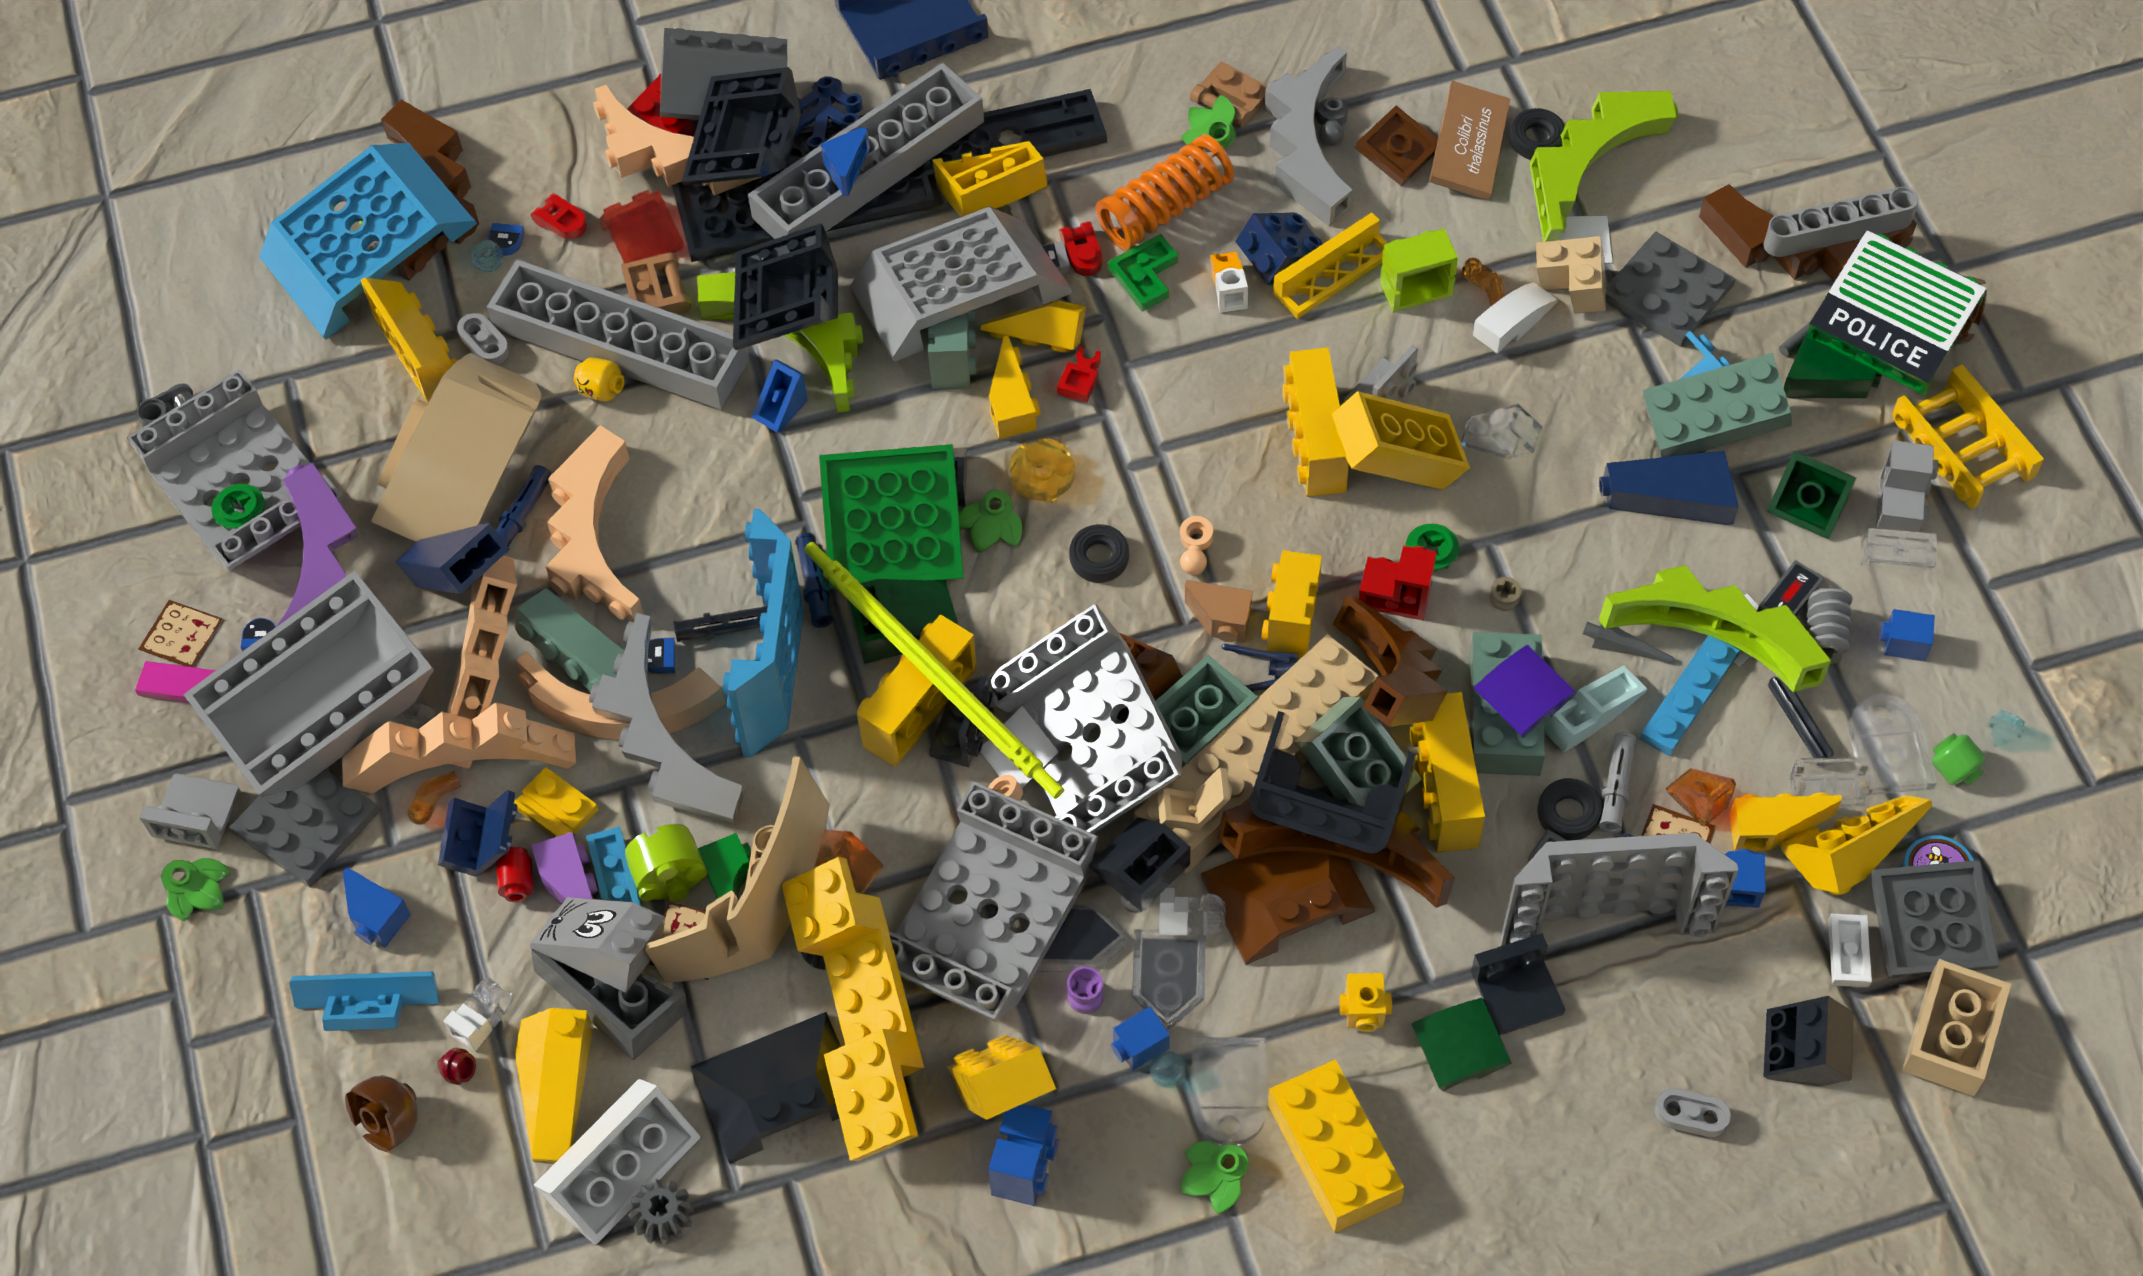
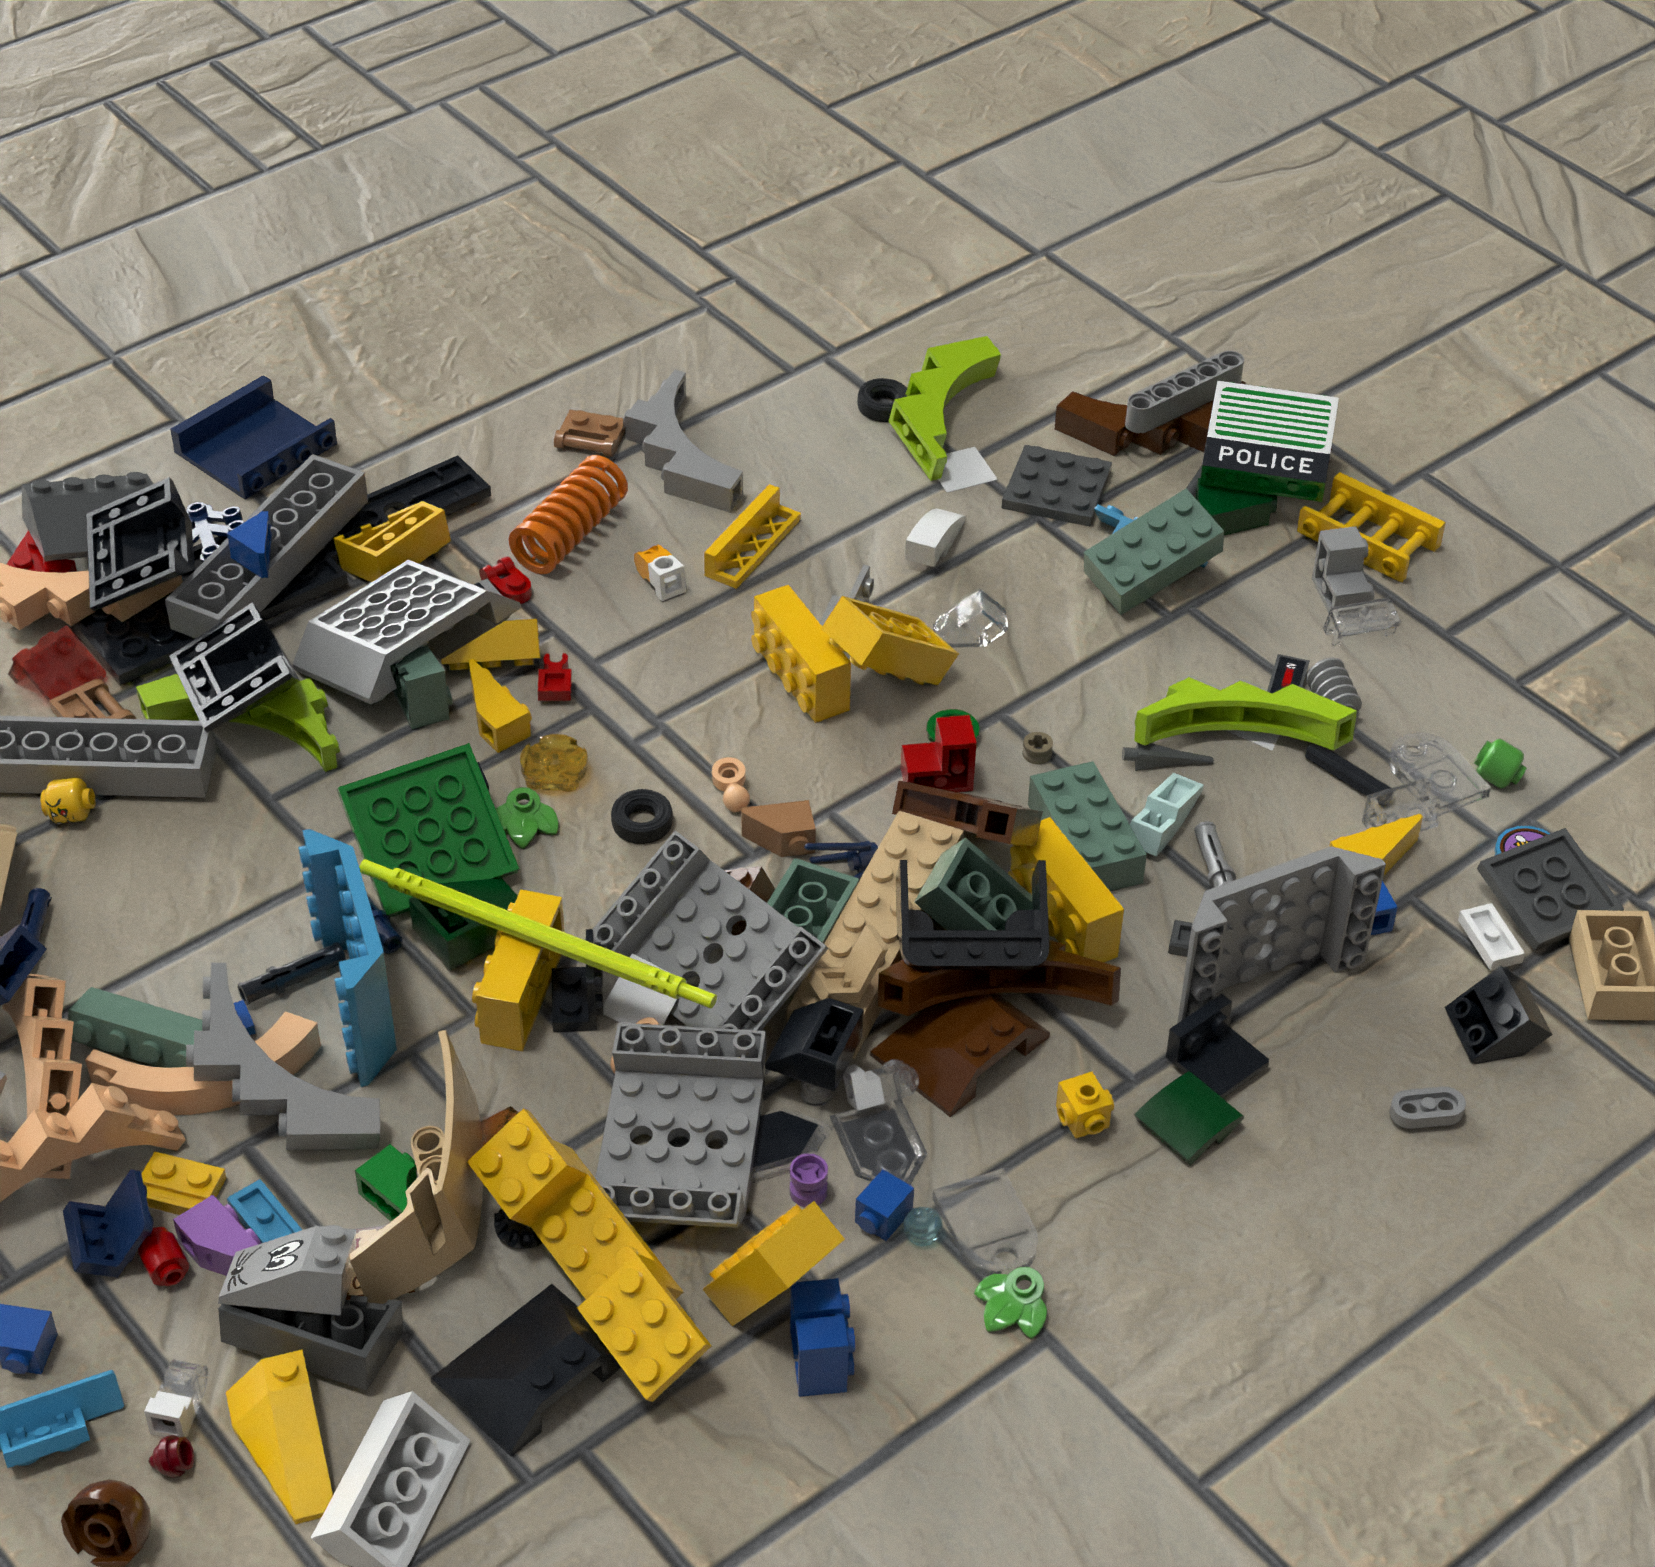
camera: 25 degrees left, 15 degrees down
(429, 795) = (36, 1211): clear orange arm -> none
(574, 529) = (113, 956): light nougat arch -> none
(652, 1223) = (461, 1520): dark grey gear -> none
(665, 863) = (326, 1190): lime brick -> none
(780, 397) = (265, 766): blue slope -> none
(1138, 270) = (573, 586): green plate -> none
(1212, 122) = (571, 458): bright green plate -> none
(1276, 241) = (688, 532): dark blue bracket -> none
(1292, 603) = (849, 801): yellow wedge -> none
(1332, 115) = (695, 429): dark grey plate -> none
(1335, 1146) = (1118, 1237): yellow brick -> none
(1398, 145) = (764, 435): reddish brown plate -> none
(1418, 269) = (834, 516): lime piece -> none
(1469, 140) = (826, 416): medium nougat tile -> none
(1485, 279) = (892, 515): clear orange arm -> none
(1524, 690) = (1104, 803): dark purple slope -> none
(1569, 789) = (1179, 883): black tyre -> none
(1576, 266) = (972, 481): tan brick -> none
(1674, 487) = (1144, 626): dark blue slope -> none
(1689, 695) = (1242, 782): dark azure plate -> none
(1702, 794) = (1295, 845): clear orange slope -> none
(1812, 494) = (1266, 598): dark green slope -> none
(1855, 846) = (1449, 856): yellow wedge -> none
(1908, 635) = (1405, 683): blue brick -> none
(2005, 728) = (1524, 729): clear light blue plate -> none

